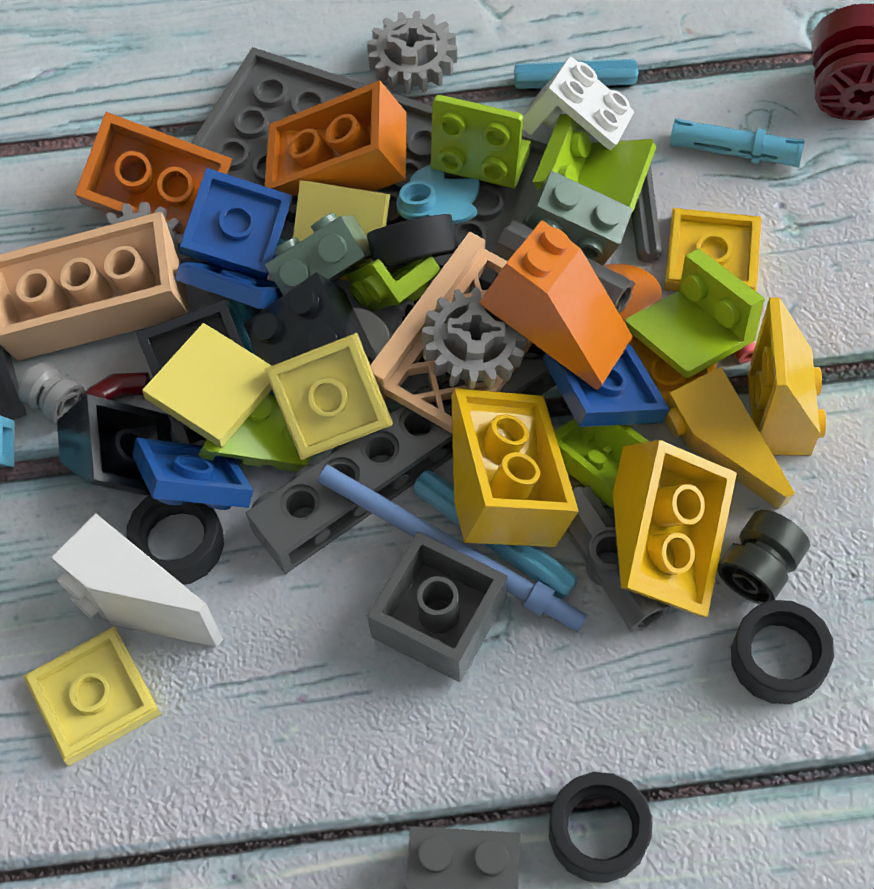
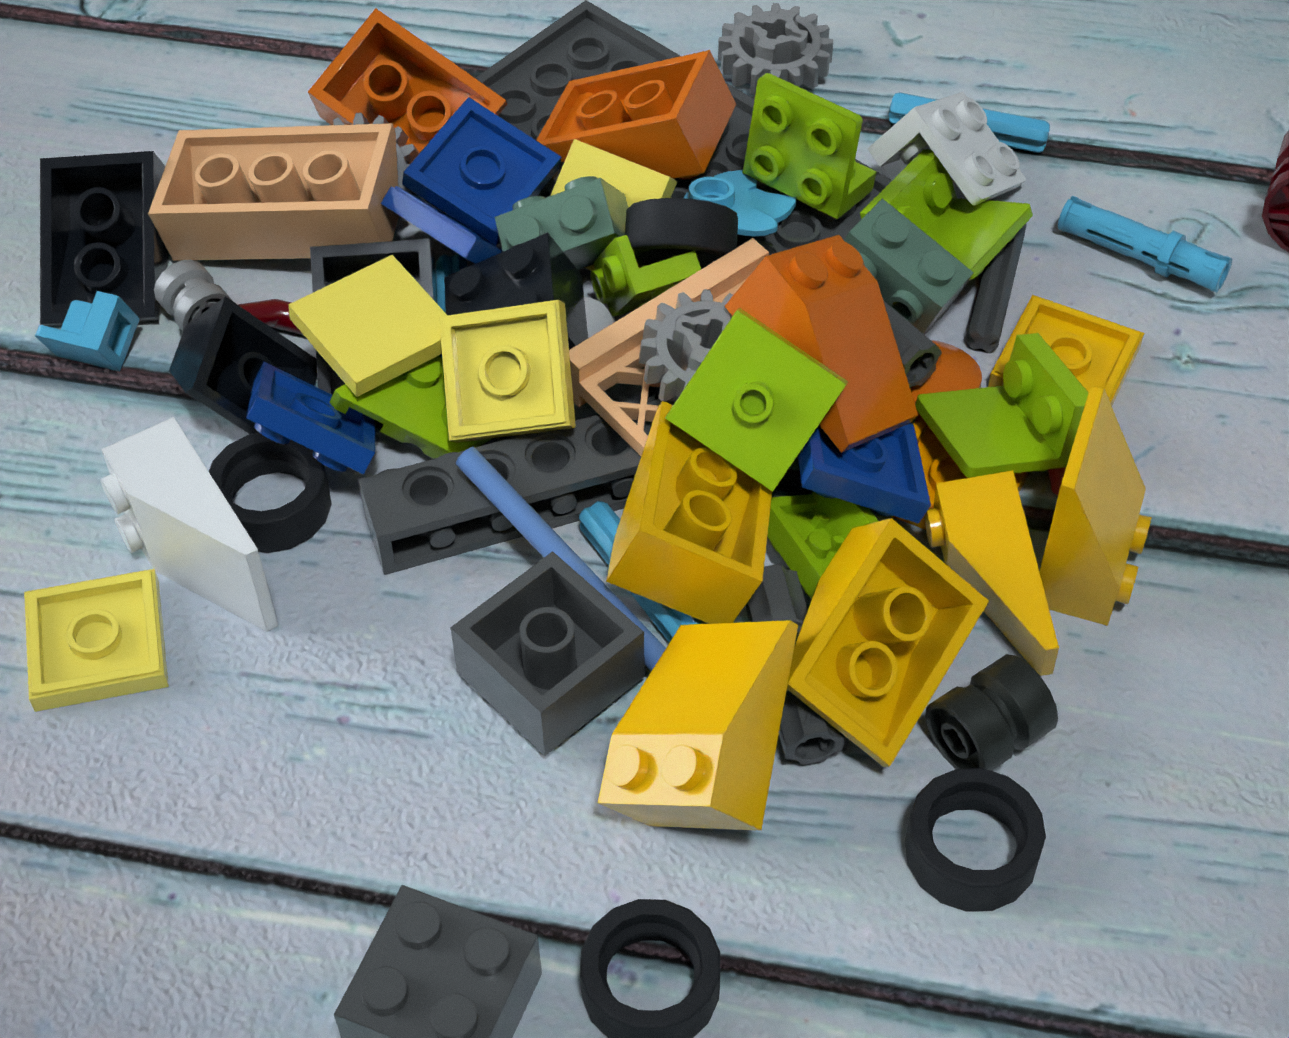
camera: 15 degrees right, 10 degrees down
(528, 372) = (756, 399): none -> lime plate
(576, 632) = (703, 729): none -> yellow slope

